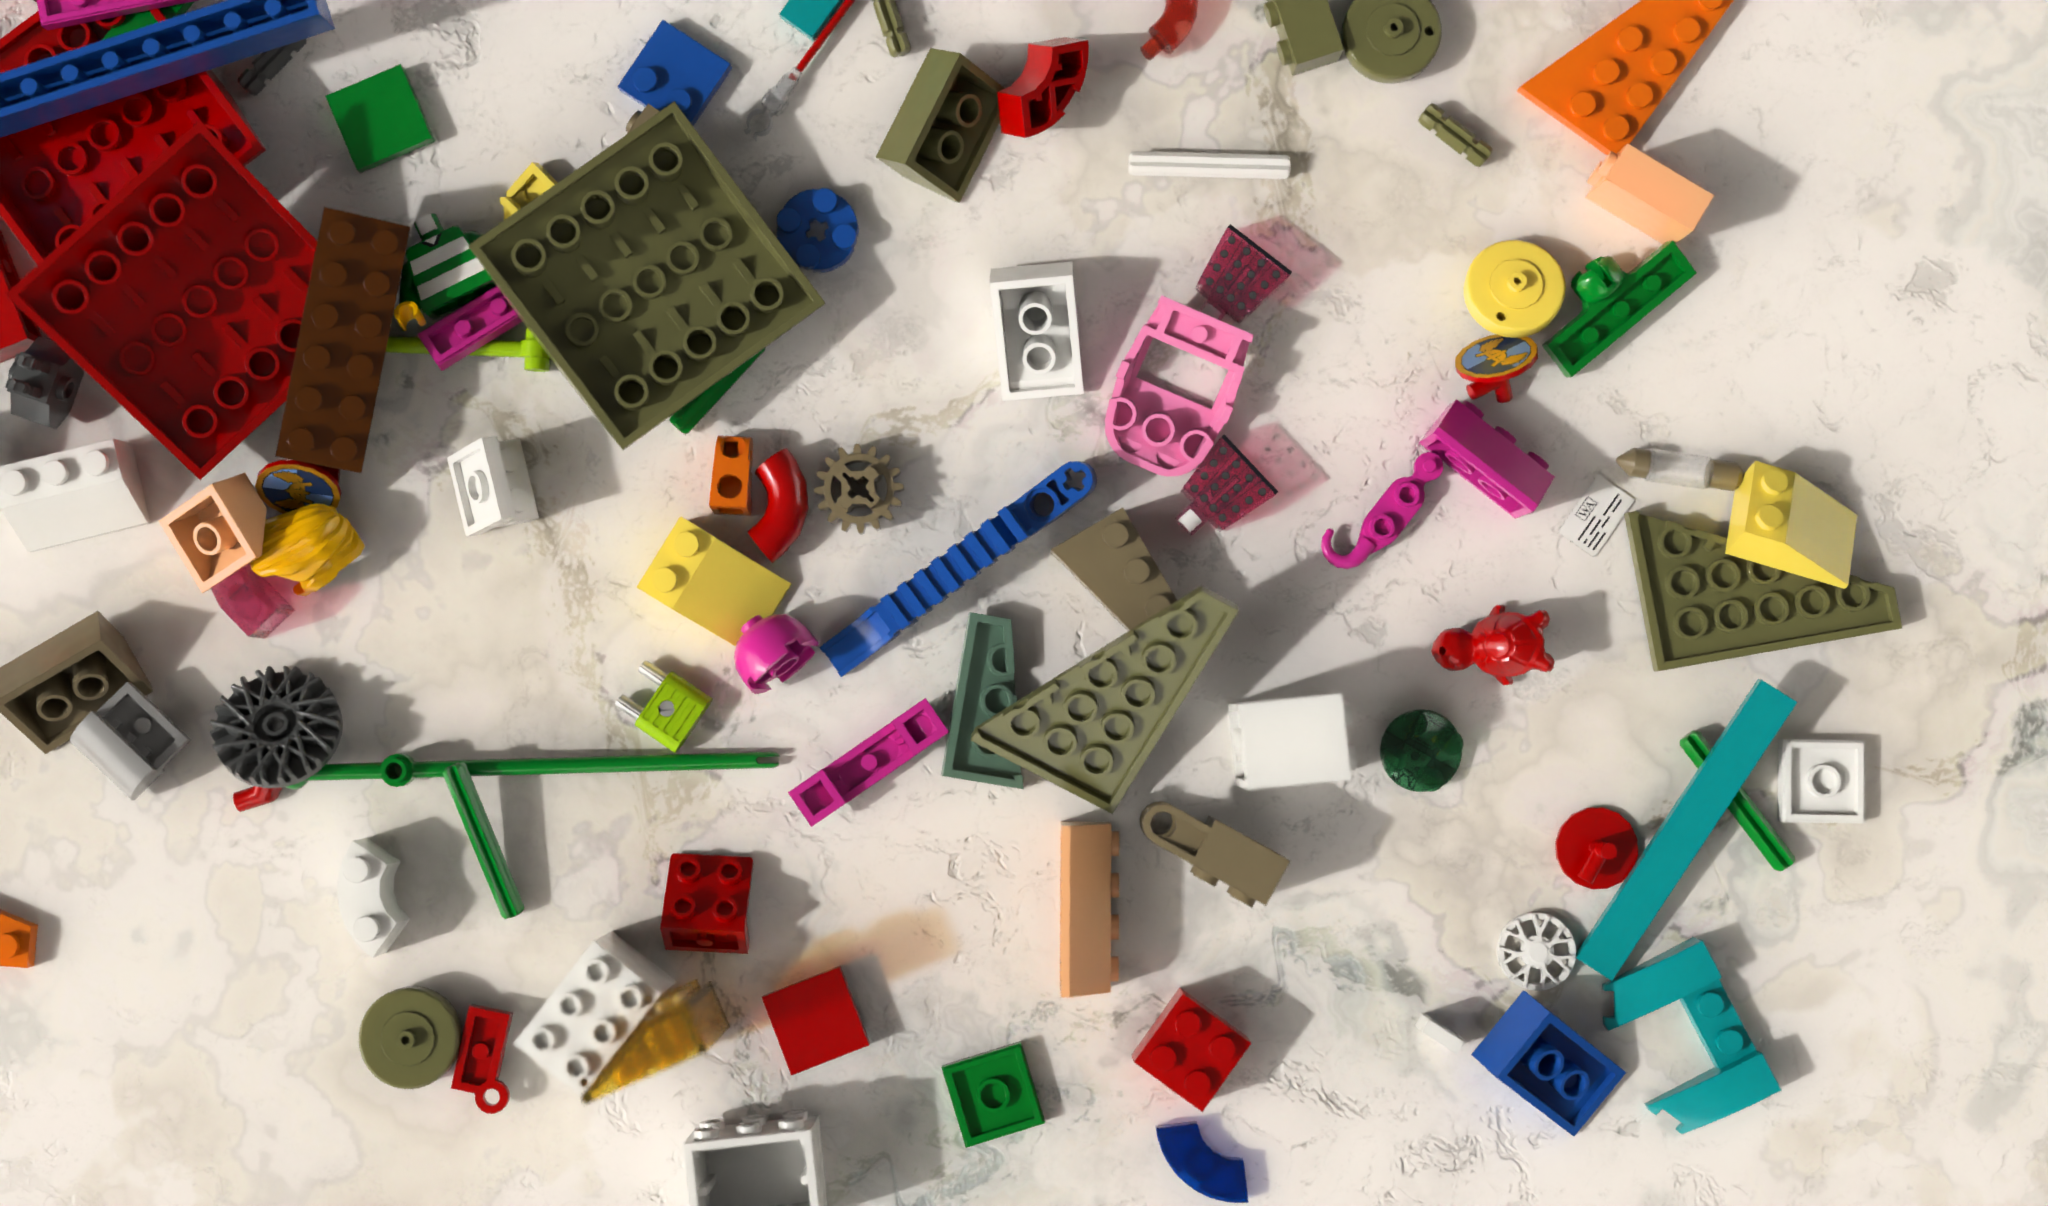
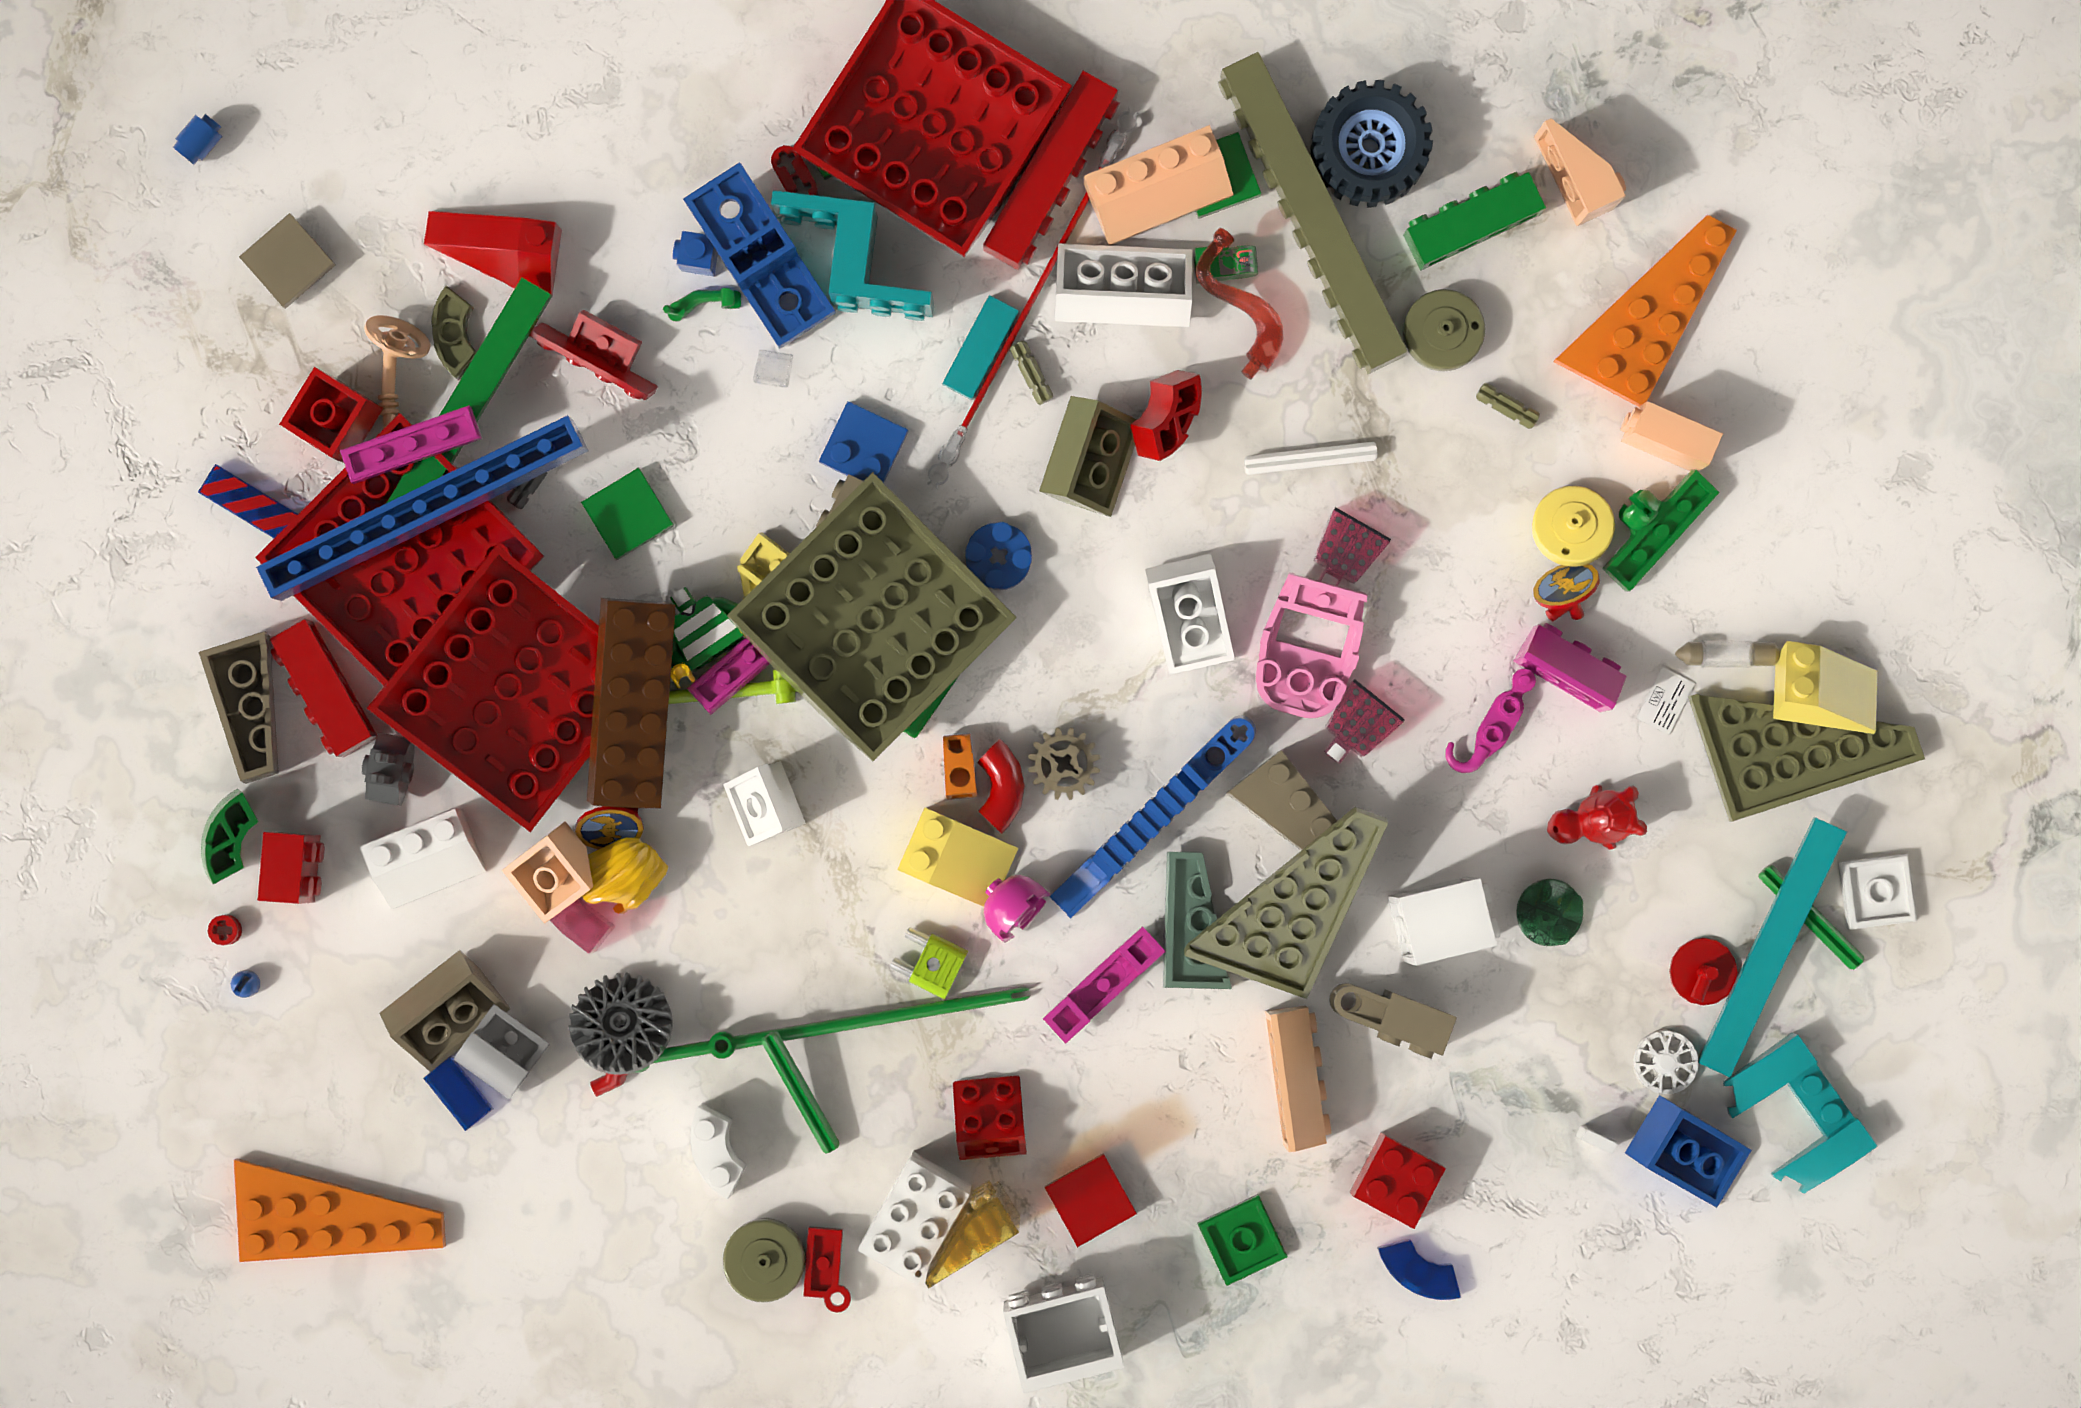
camera: 10 degrees left, 0 degrees up
(74, 784) = (458, 1093): none -> clear blue tile

